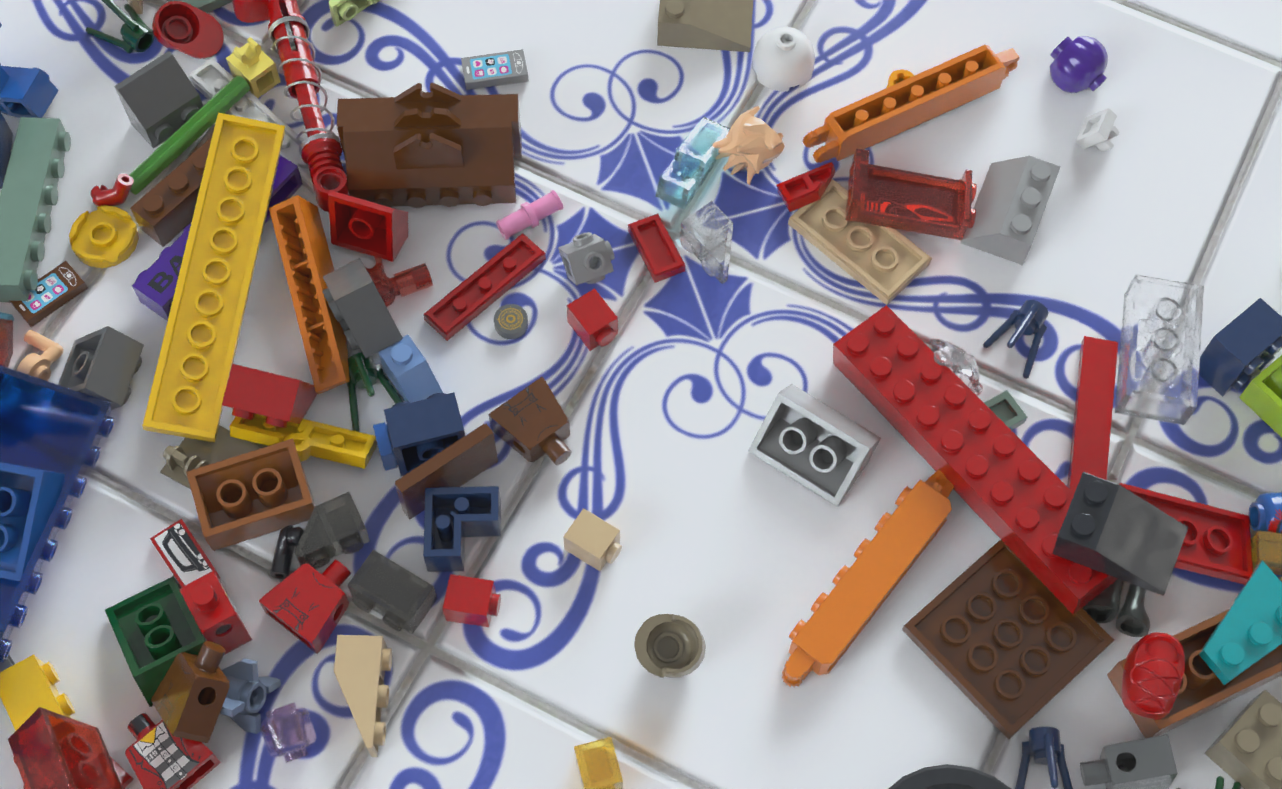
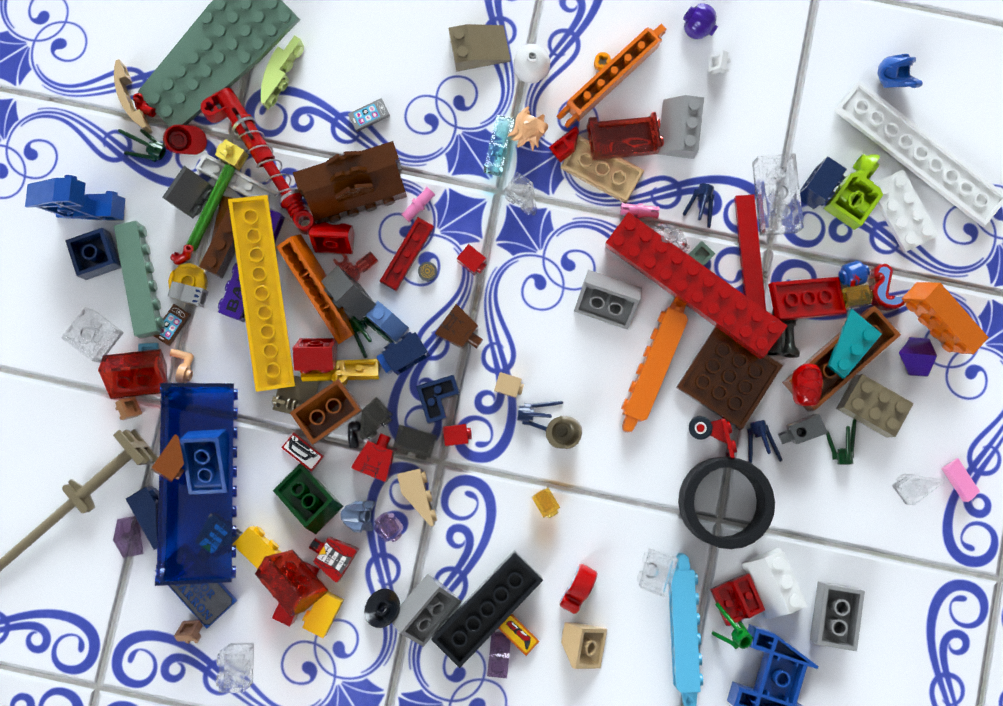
camera: 15 degrees left, 20 degrees up
(96, 248) = (188, 294): none -> light grey leg
(103, 365) = (218, 363): dark grey slope -> none
(193, 693) = (337, 526): reddish brown torso -> none
(213, 609) = (330, 479): red torso -> none
(448, 469) = (423, 371): reddish brown tile -> none
(587, 258) = (458, 225): light grey brick -> none
(612, 599) = (525, 413): none -> dark blue plant
(656, 248) = (492, 204): red tile -> none
(914, 319) = (640, 210): none -> bright pink pin
(936, 712) = (702, 428): none -> plate
(1120, 535) = (779, 320): black slope -> none

